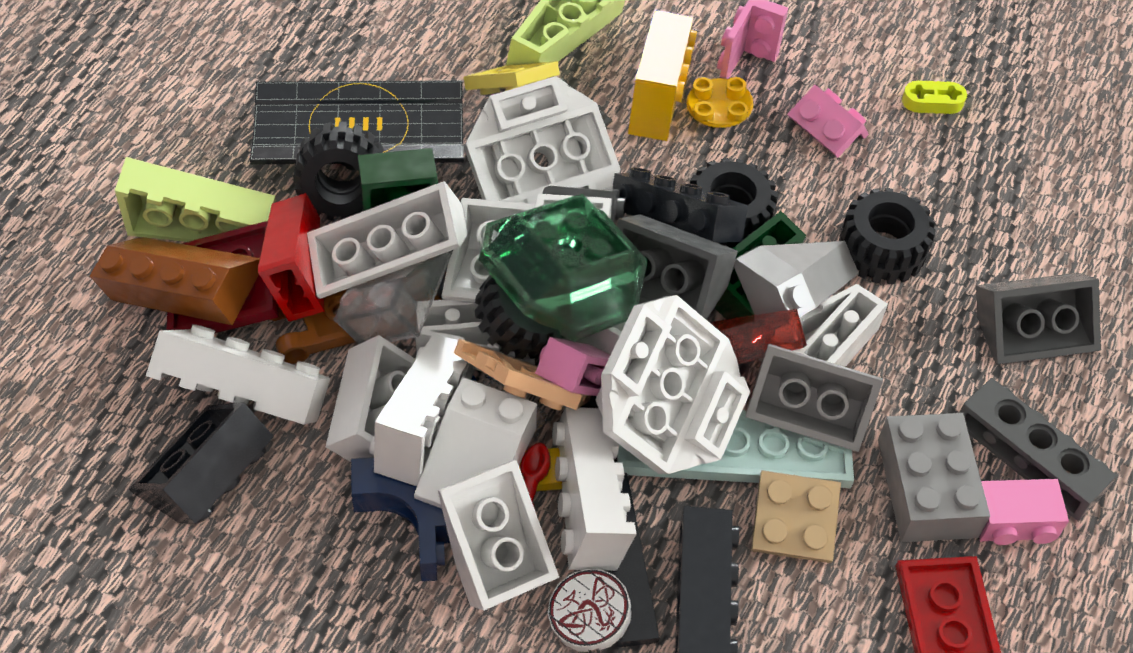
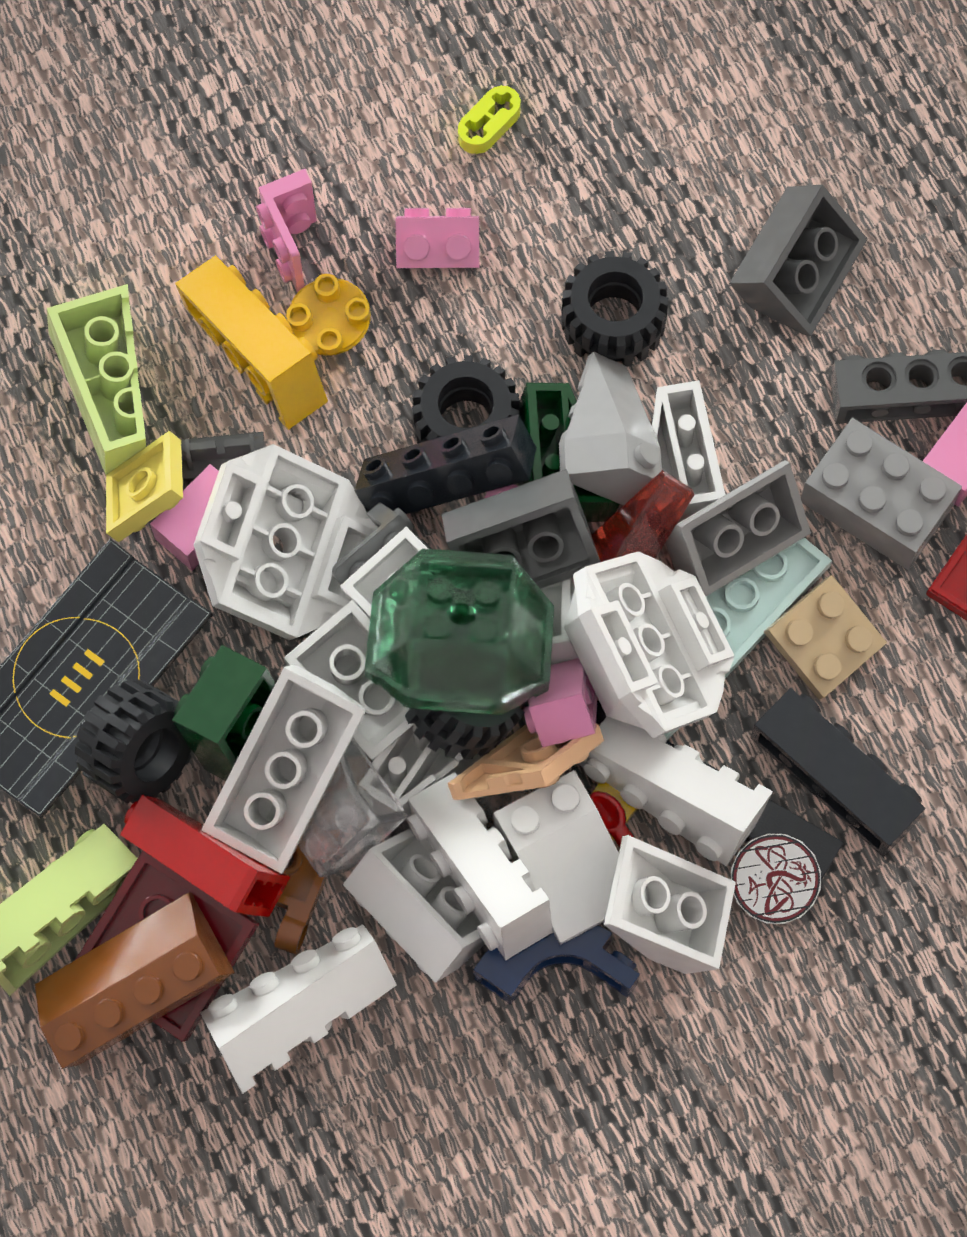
camera: 45 degrees left, 15 degrees up
(203, 462) = (355, 1104): black slope -> none

